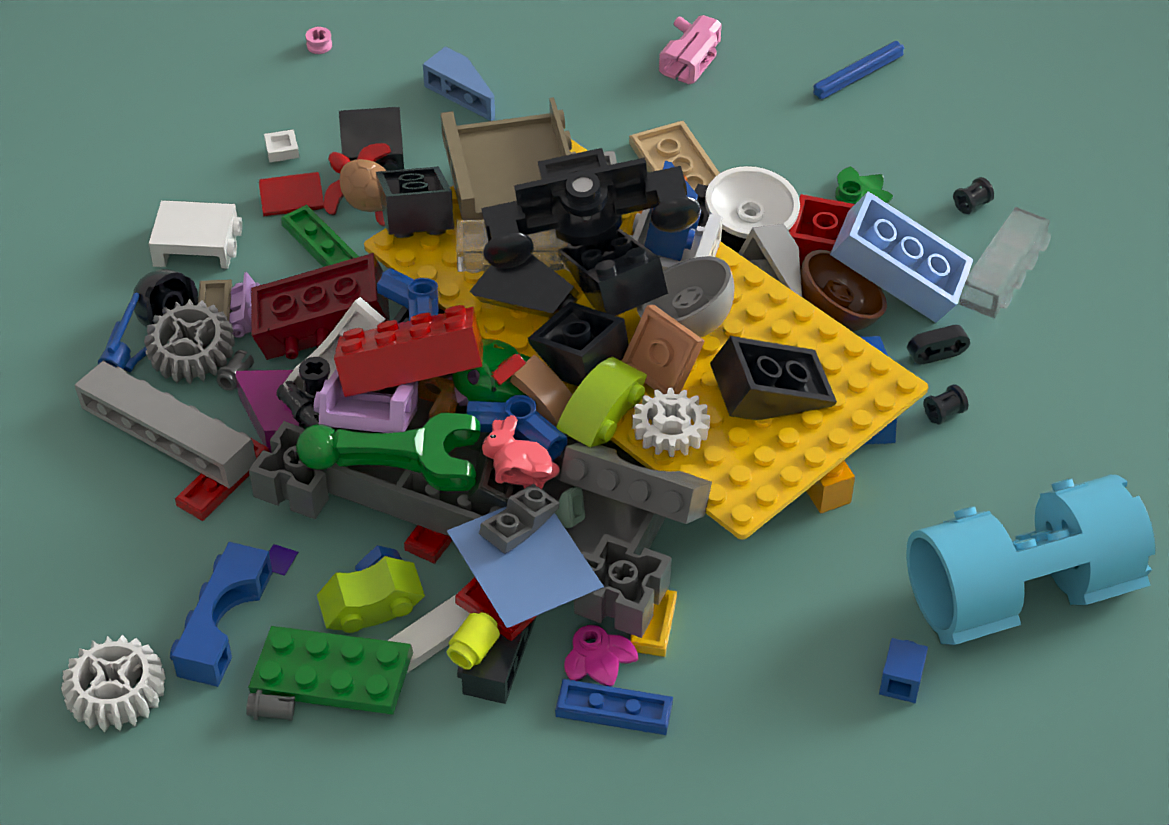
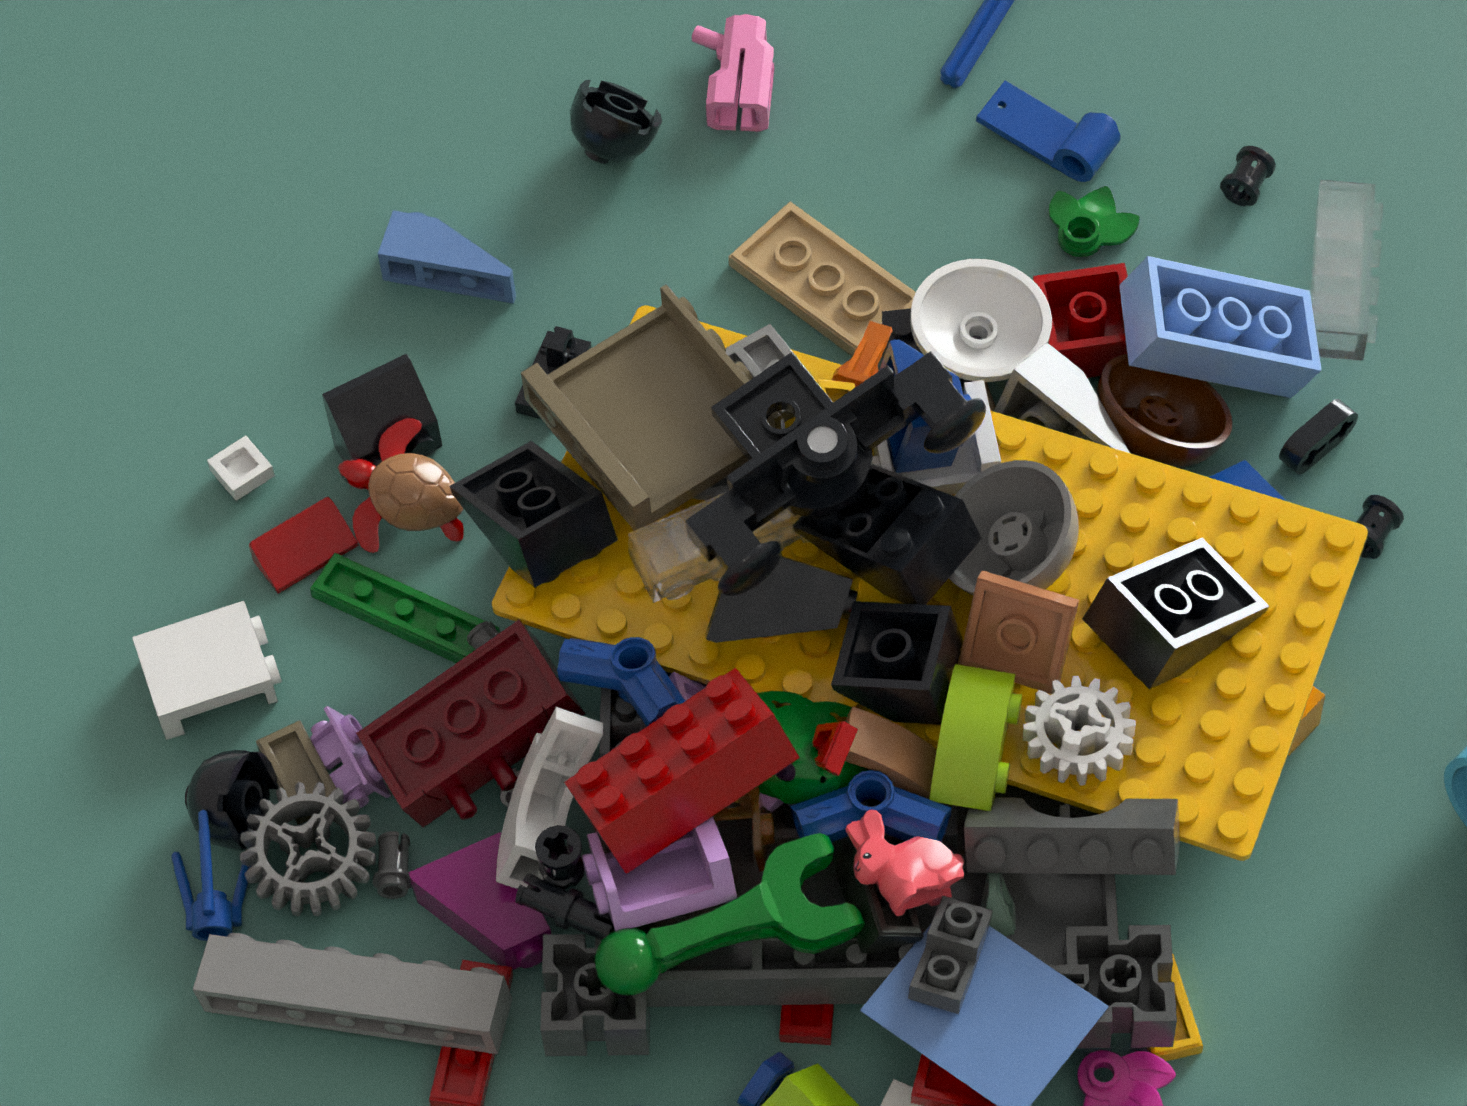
camera: 20 degrees left, 10 degrees up
(318, 40) = (192, 271): bright pink bush -> none
(599, 45) = (612, 122): none -> black cylinder
(861, 137) = (1049, 135): none -> blue door

